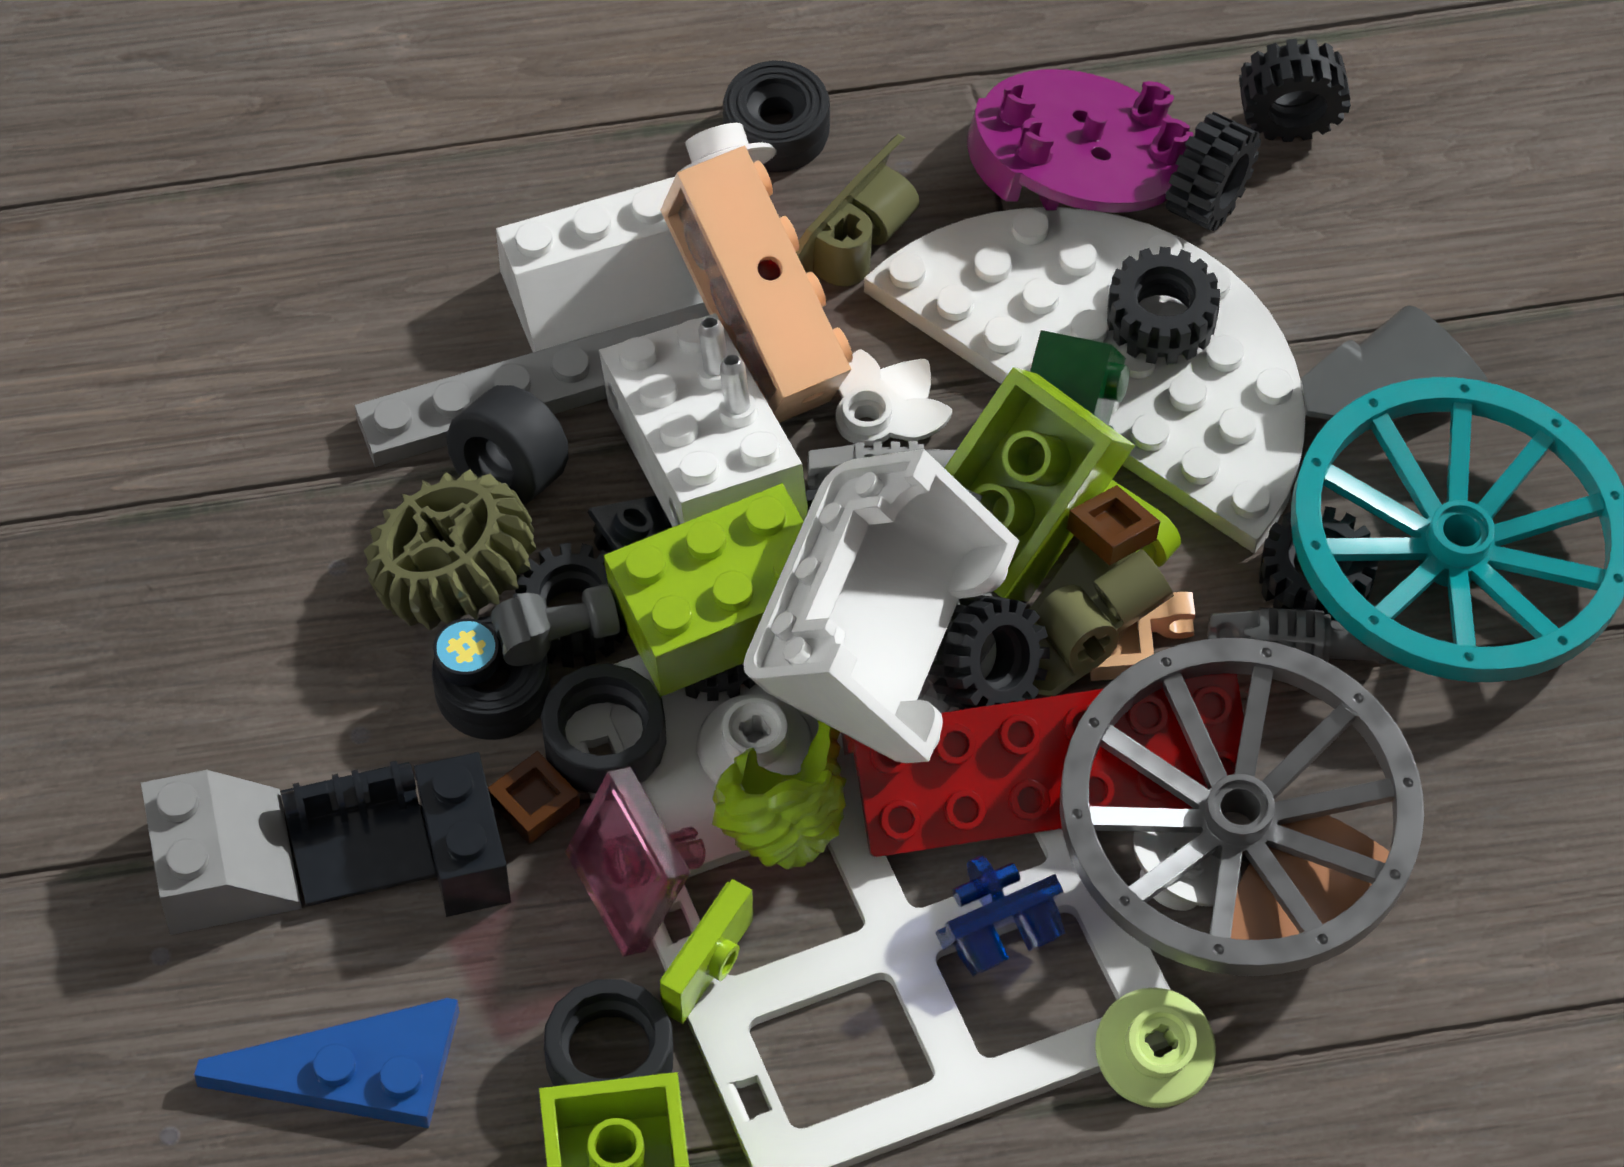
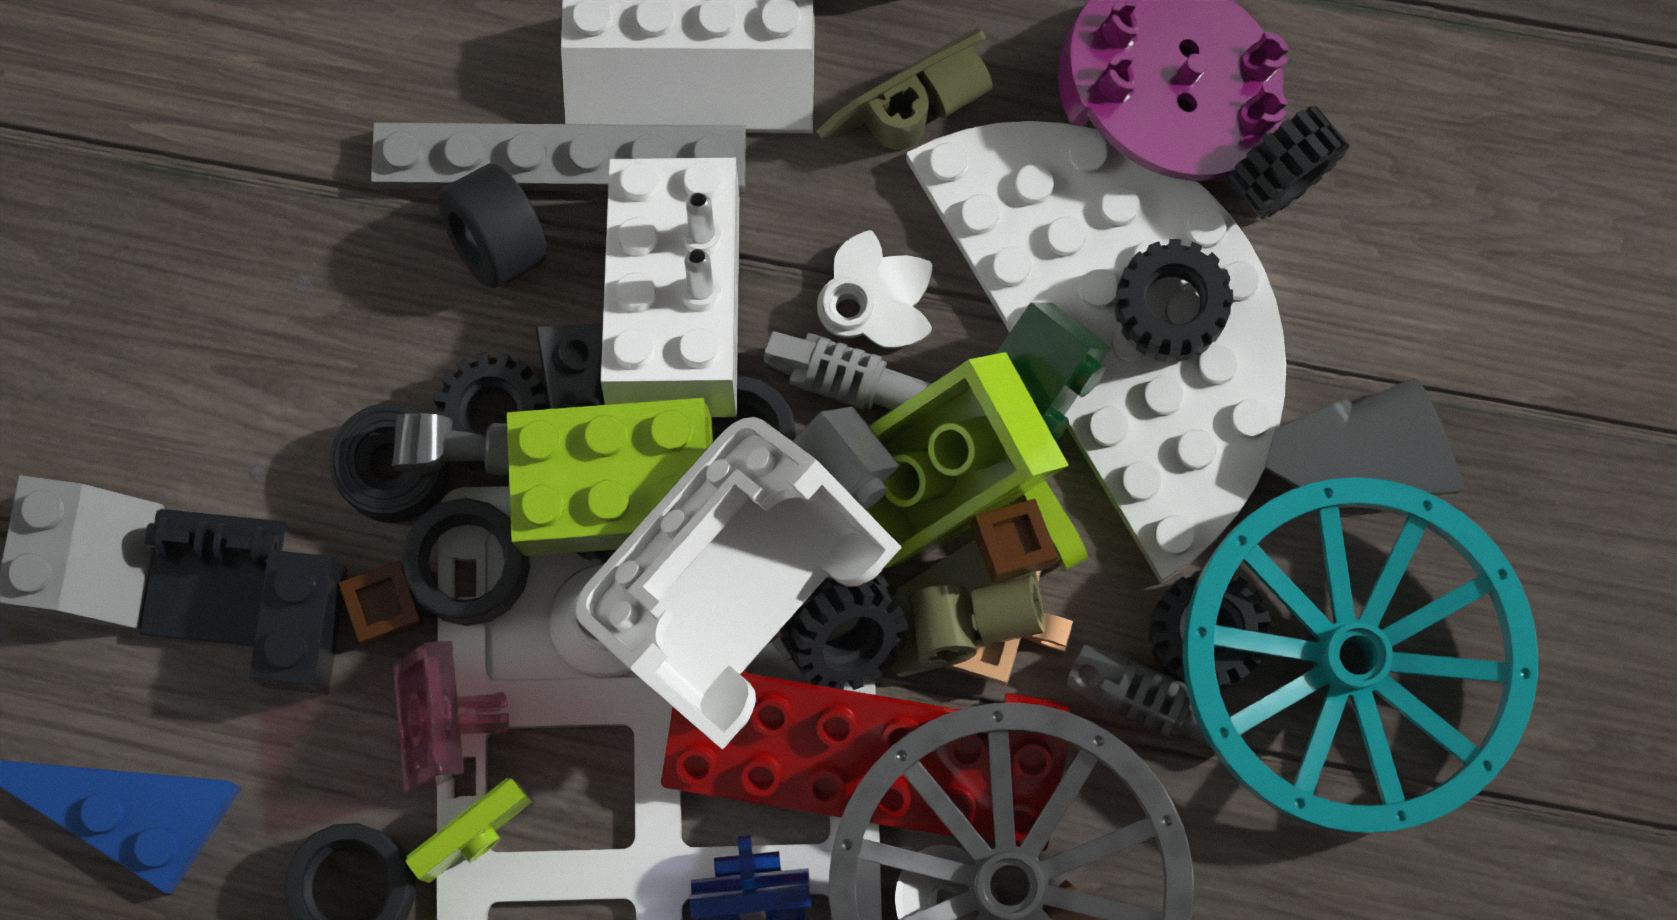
camera: 25 degrees right, 20 degrees up
(450, 549) = (404, 311): olive gear -> none
(466, 652) = (363, 442): tile -> none
(755, 282) = (778, 199): light nougat brick -> none
(780, 815) = (586, 714): lime hair -> none
(1294, 90) = (1410, 96): black tyre -> none

